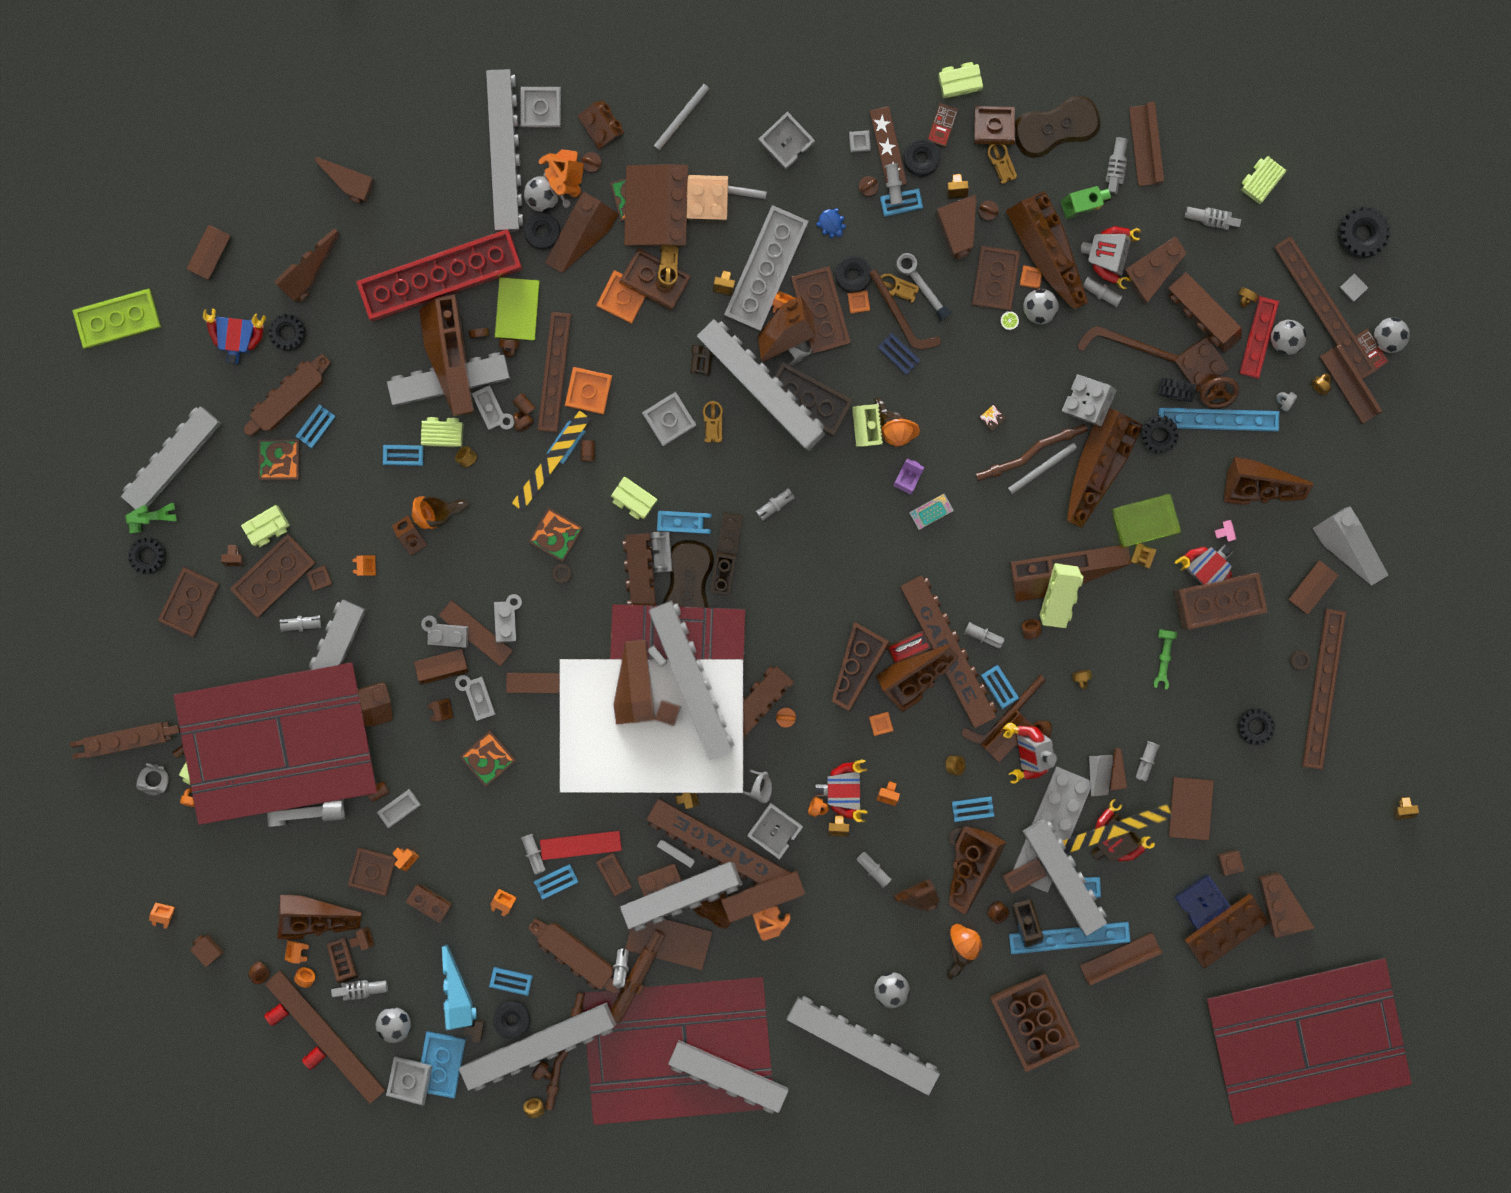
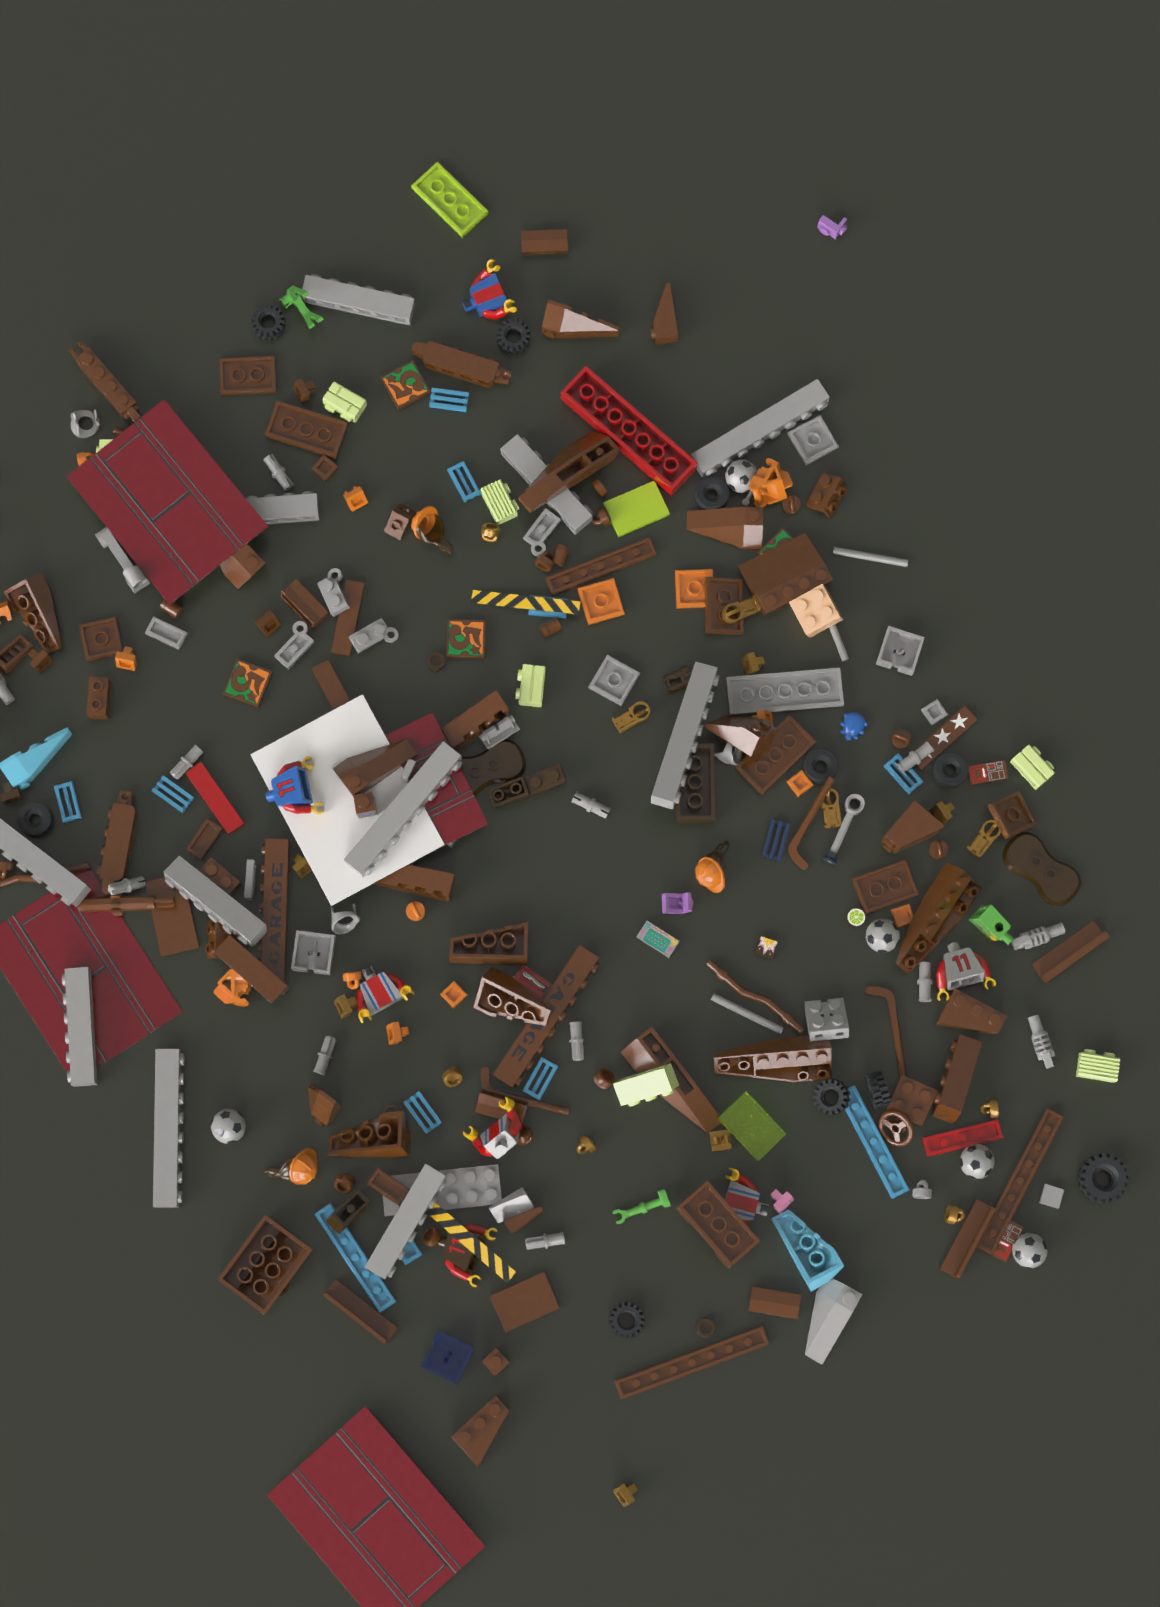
camera: 60 degrees right, 10 degrees down
(503, 902) = (132, 758): orange tile -> none
(616, 771) = (292, 788): none -> blue torso
(682, 522) = (533, 736): dark azure hinge -> none
(867, 425) = (700, 844): yellowish green brick -> none
(1088, 860) = (431, 1236): none -> reddish brown tile
(1227, 931) = (434, 1391): reddish brown plate -> none
(1255, 481) = (838, 1203): reddish brown wedge -> none
(1289, 531) = (811, 1254): none -> medium azure wedge

